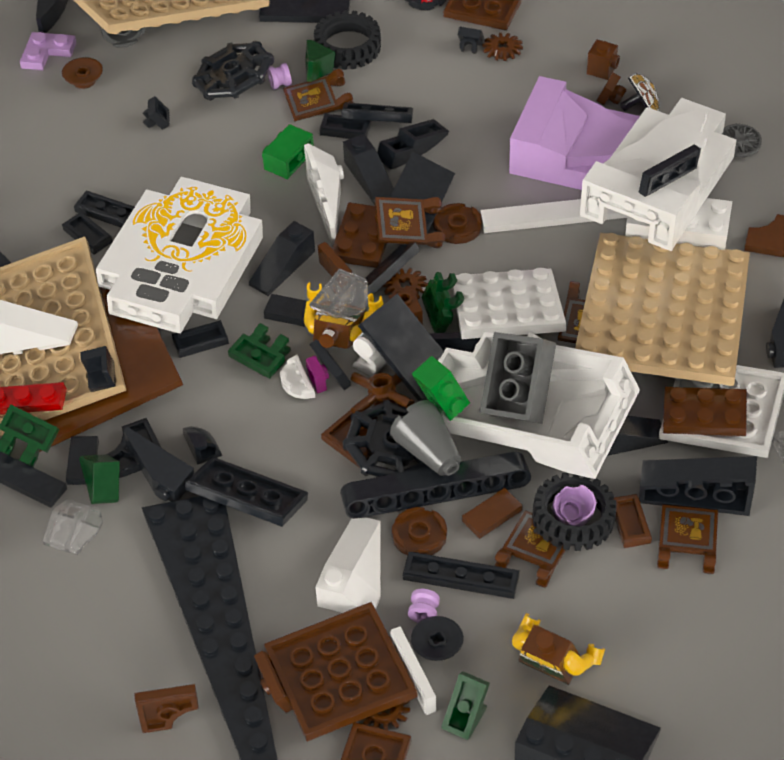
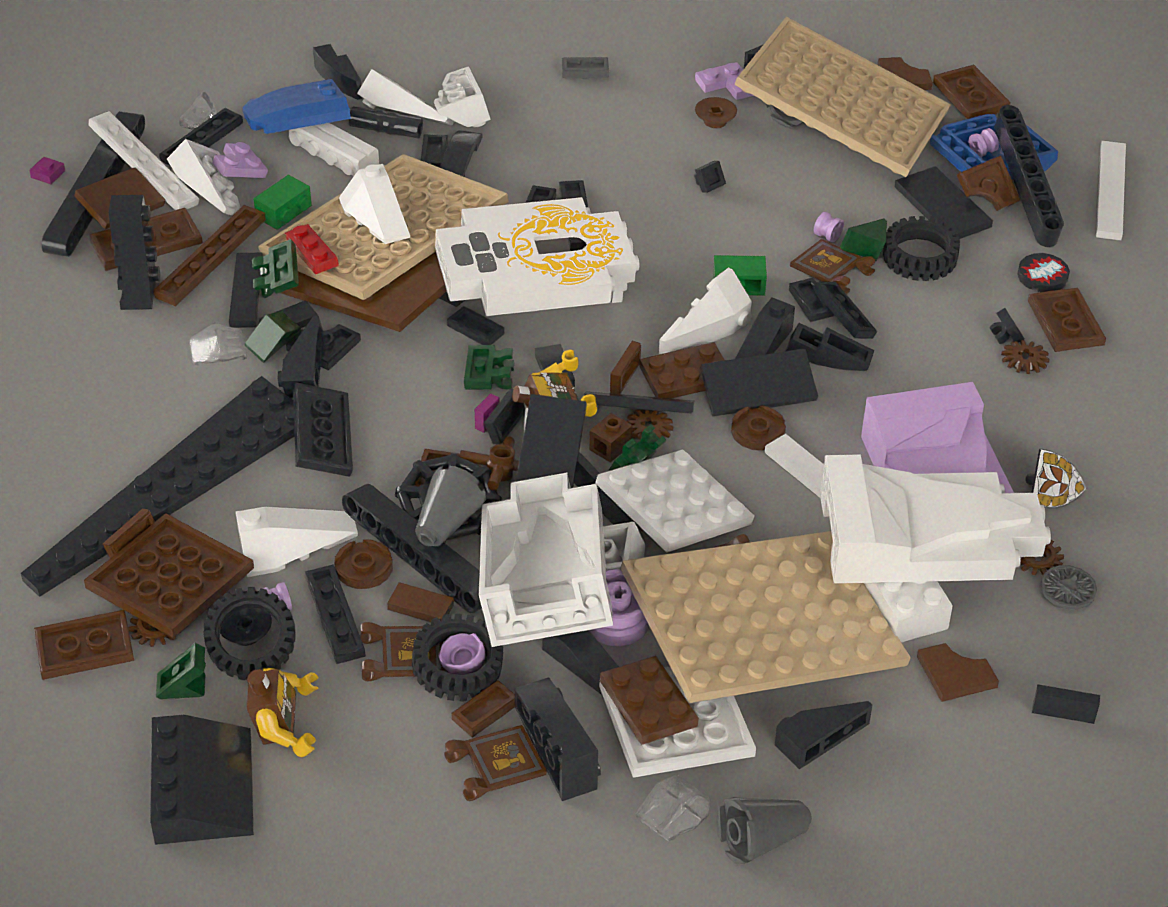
camera: 55 degrees right, 5 degrees down
(99, 367) = (364, 269): black panel -> none
(162, 707) = (52, 476): reddish brown tile -> none
(201, 444) = (355, 378): black brick -> none
(233, 70) = (803, 194): black plate -> none
(284, 257) = (607, 331): black slope -> none
(295, 380) = (469, 401): white plate -> none
(342, 295) = (573, 378): clear slope -> none
(404, 221) = (713, 383): reddish brown flag -> none
(424, 690) = (192, 628): white tile -> none
(441, 387) = (494, 479): green brick -> none
(475, 611) = (239, 601): none -> black tyre
(518, 377) = (547, 526): dark grey brick -> none
(602, 59) = (1073, 431): reddish brown brick -> none
(612, 91) = (1030, 453): reddish brown tile -> none
(669, 170) = (889, 508): black tile -> none

